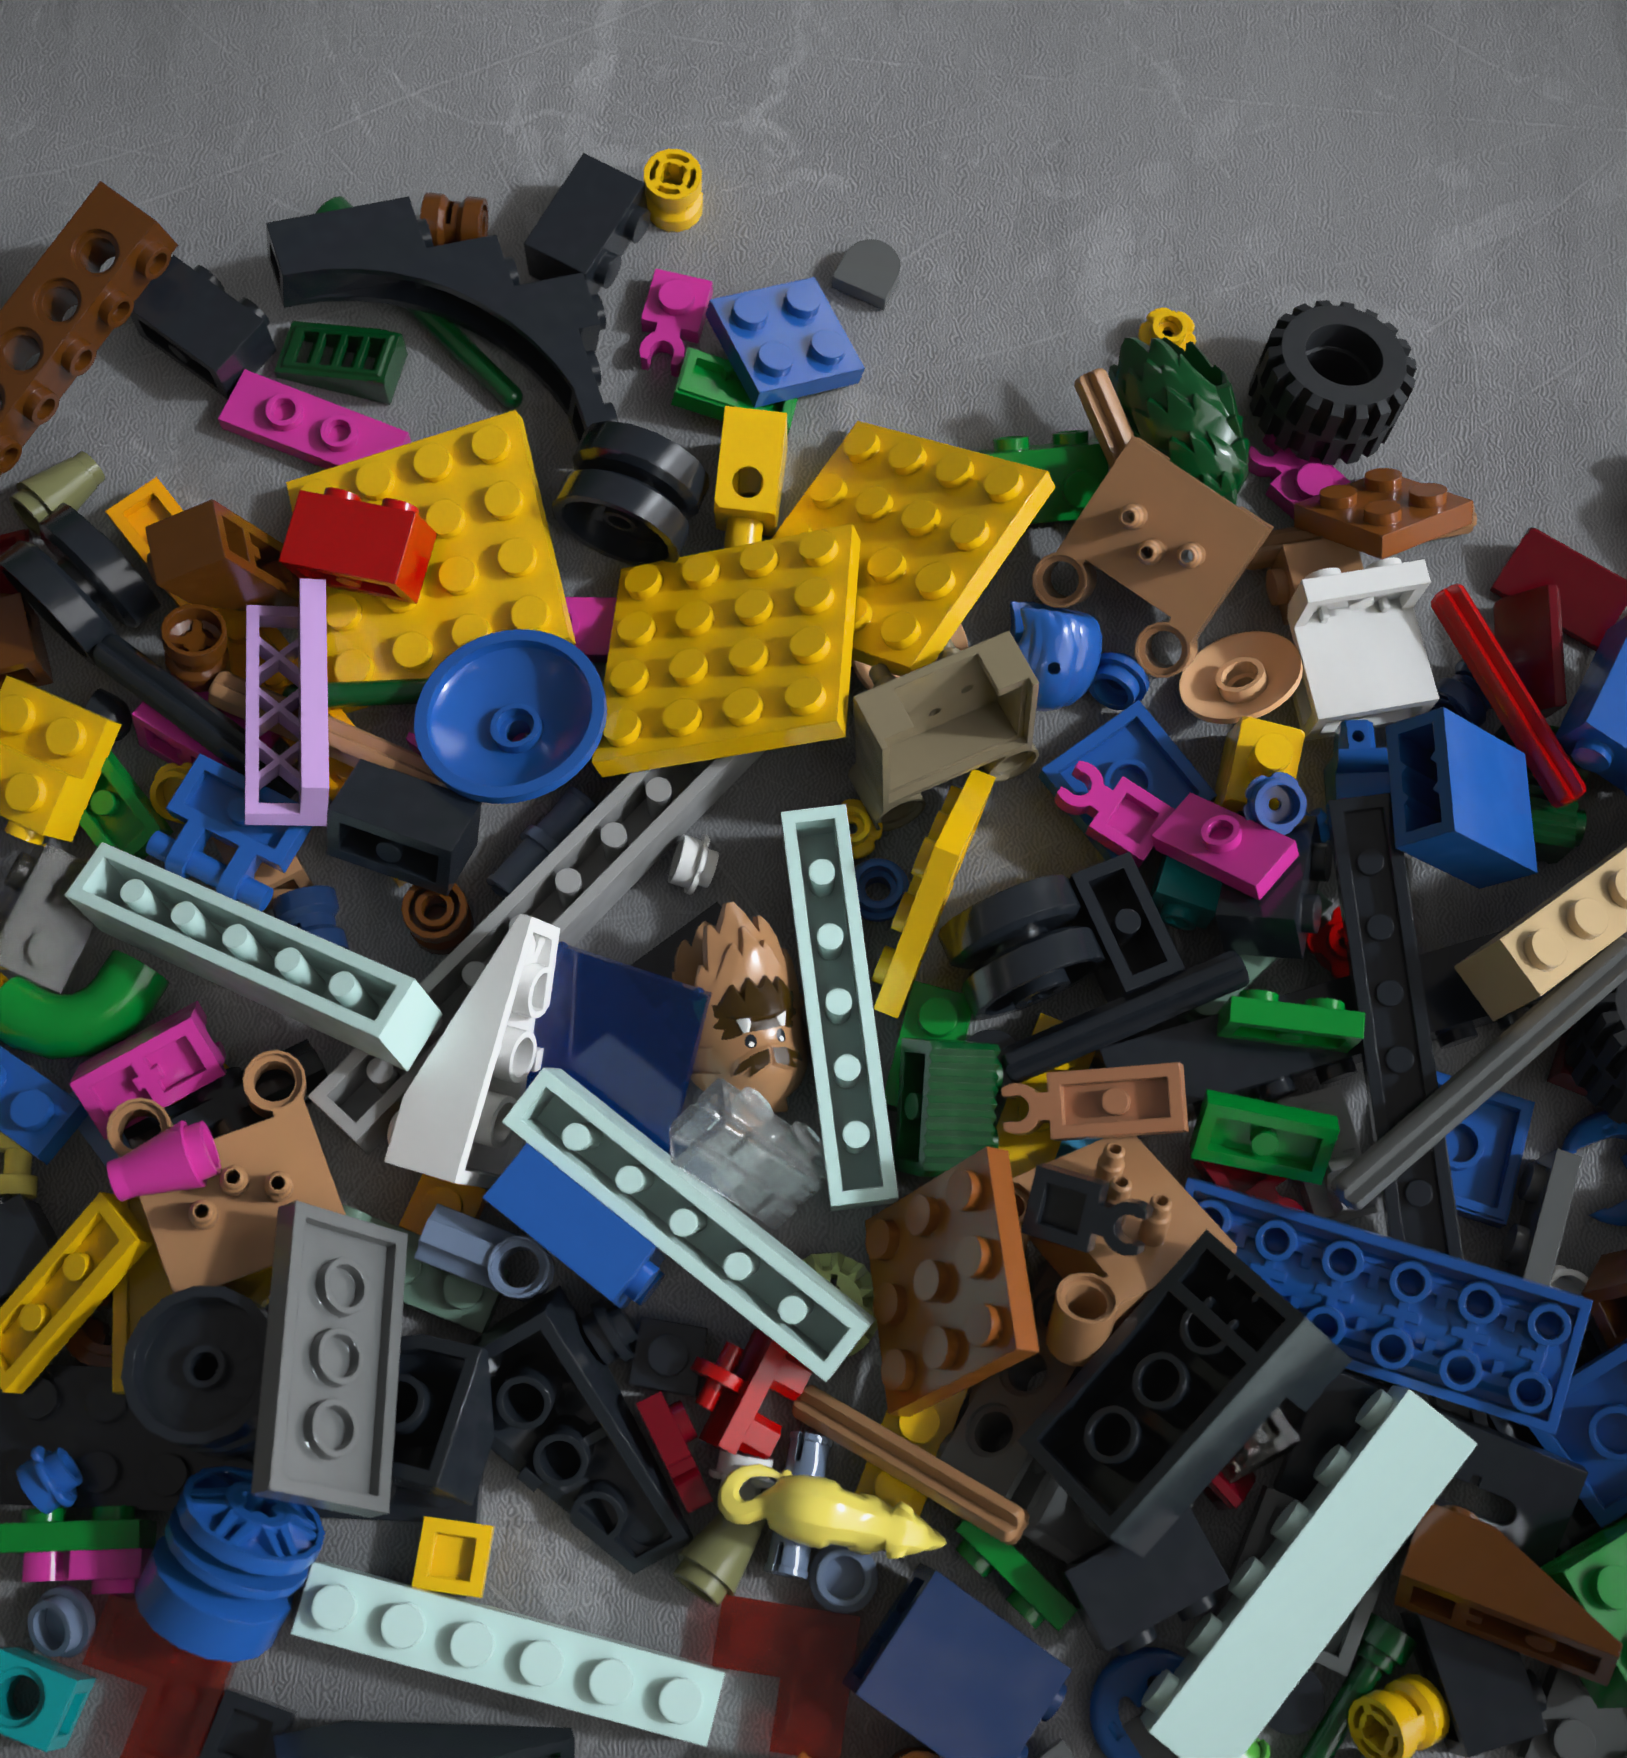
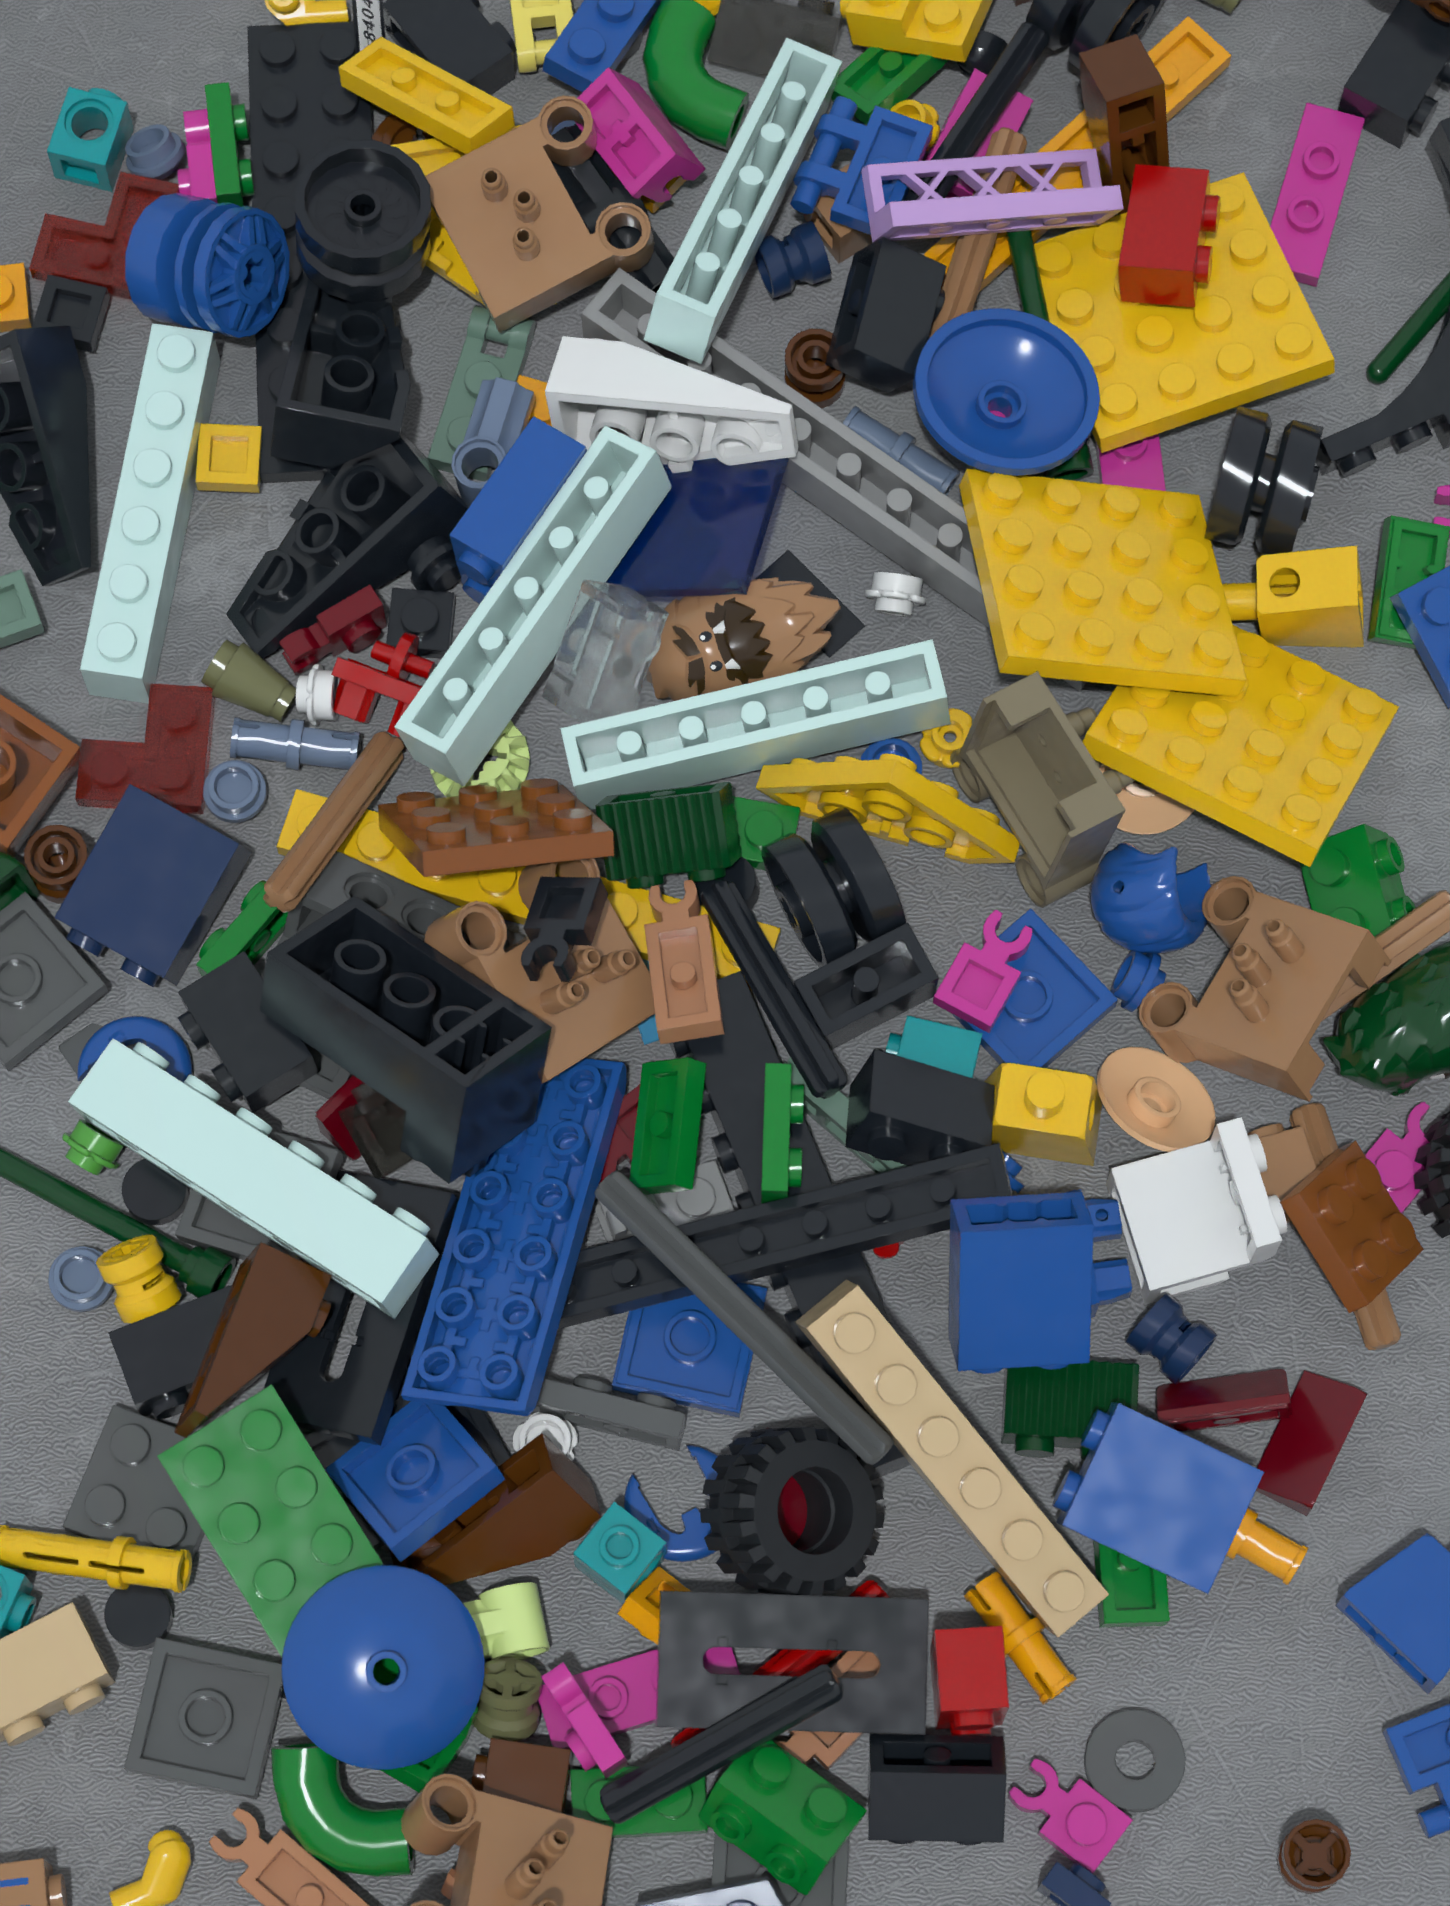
camera: 90 degrees right, 0 degrees up
(49, 1479) = (268, 115): blue plate -> none
(168, 1162) = (535, 149): dark pink cone -> none
(195, 645) = (1054, 100): reddish brown wheel -> none
(331, 1362) = (376, 304): dark grey plate -> none
(365, 342) = (1386, 248): dark green slope -> none
(822, 1514) = (284, 749): light yellow animal -> none
(1225, 846) = (949, 1060): dark pink plate -> none
(1291, 800) = (978, 1097): blue plate -> none
(1508, 696) = (1157, 1351): red axle -> none

